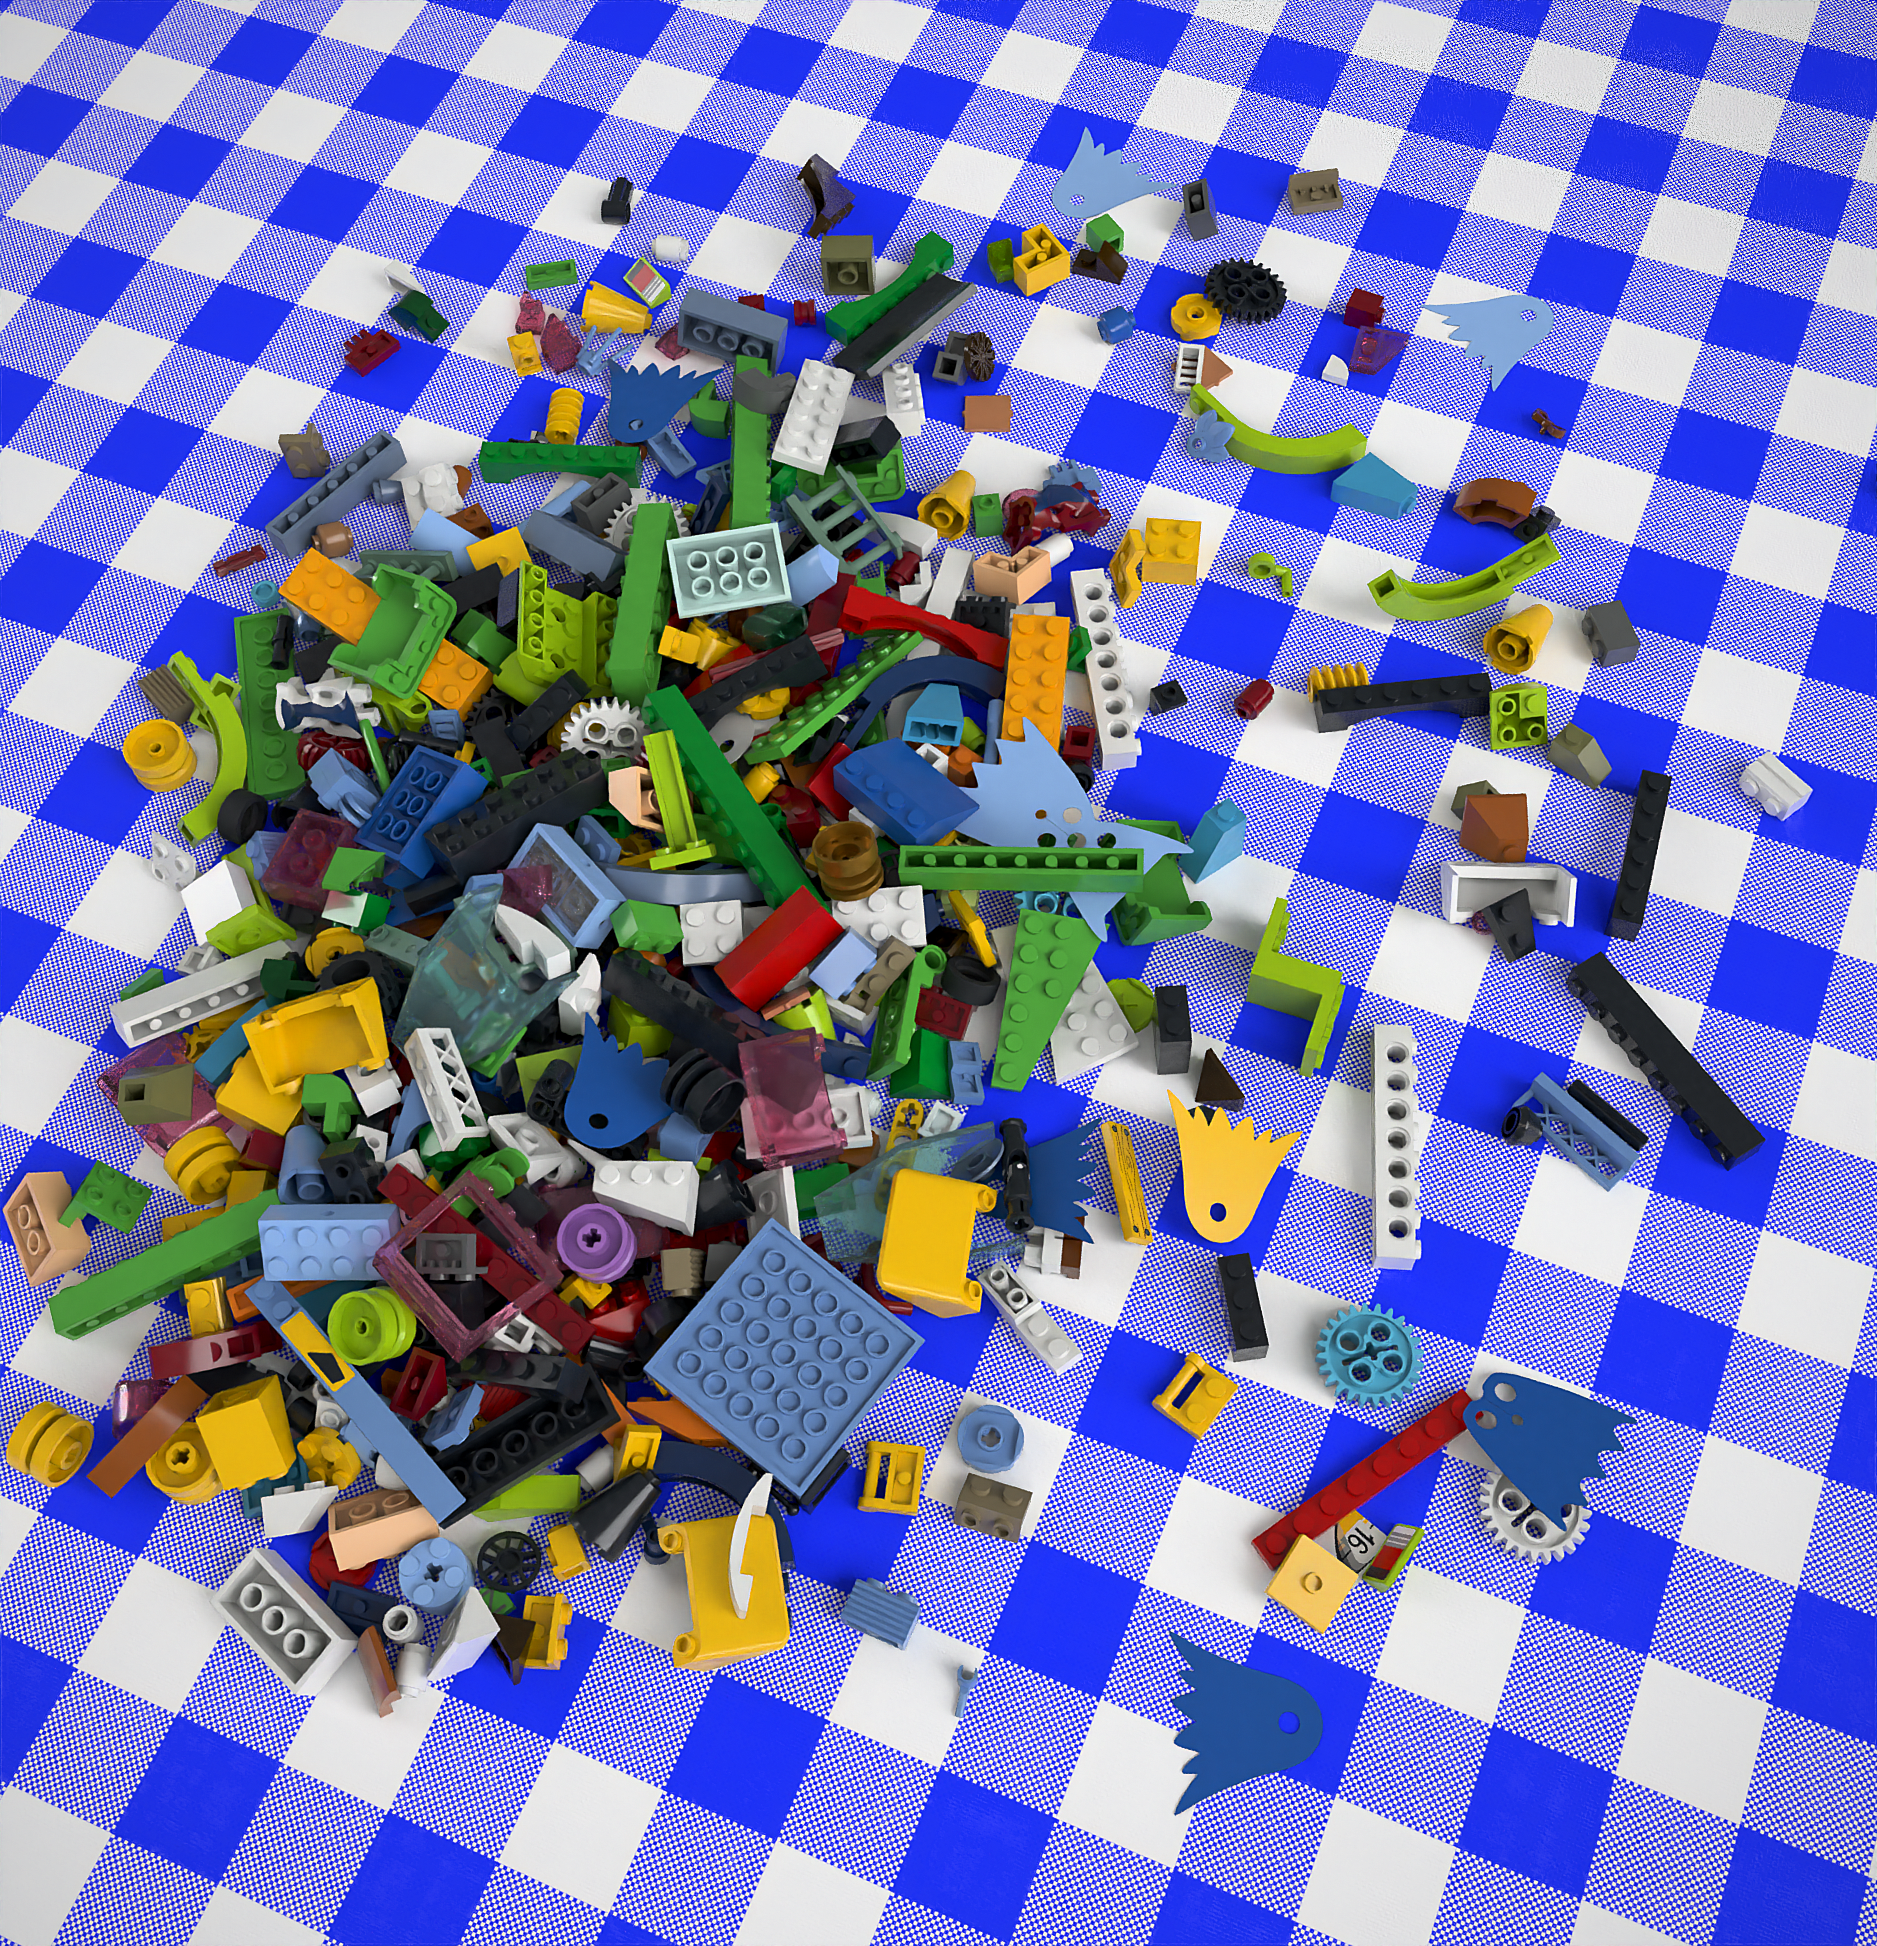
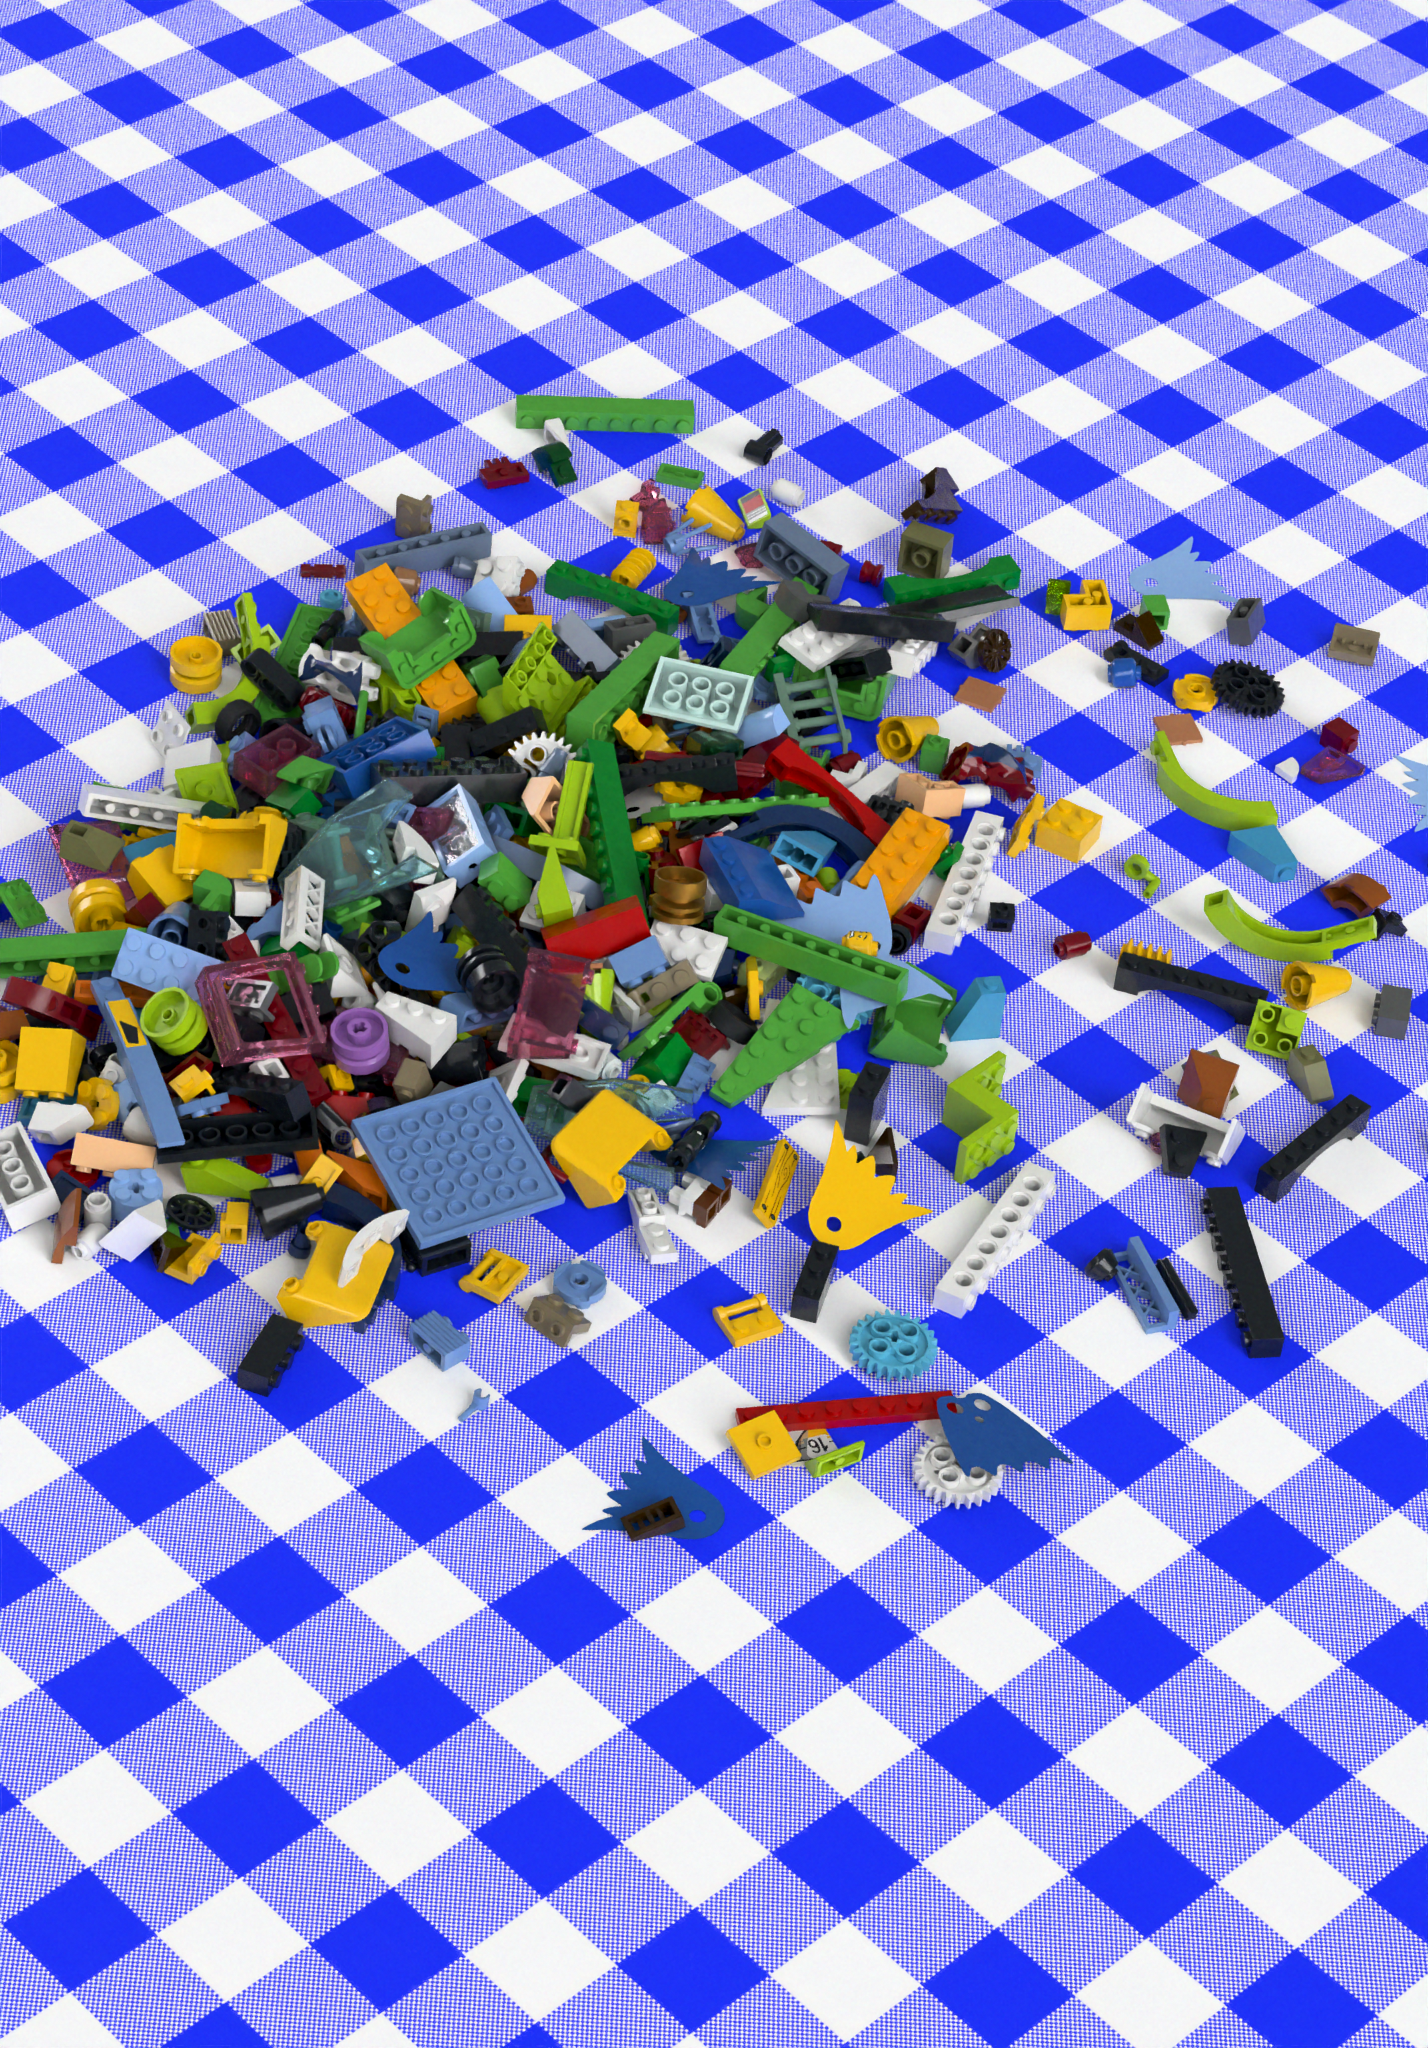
camera: 15 degrees right, 20 degrees down
(255, 745) = (272, 679): none -> black beam
(433, 1402) = (191, 1083): none -> yellow bracket
(439, 230) = (606, 413): none -> bright green brick
(622, 741) = (553, 765): none -> sand blue cone
(702, 1742) = (270, 1355): none -> black brick
(710, 924) = (552, 895): none -> lime slope
(858, 381) = (881, 622): none -> black arch
(863, 1197) = (569, 1093): none -> black brick
(915, 534) = (864, 742): white slope -> none
(1065, 830) = (861, 942): none -> yellow head
(1141, 308) = (1151, 672): none -> black plate
(1188, 351) = (1167, 709): white slope -> none
(1213, 435) = (1149, 770): medium blue plate -> none
(1269, 1742) = (658, 1509): none -> dark brown slope

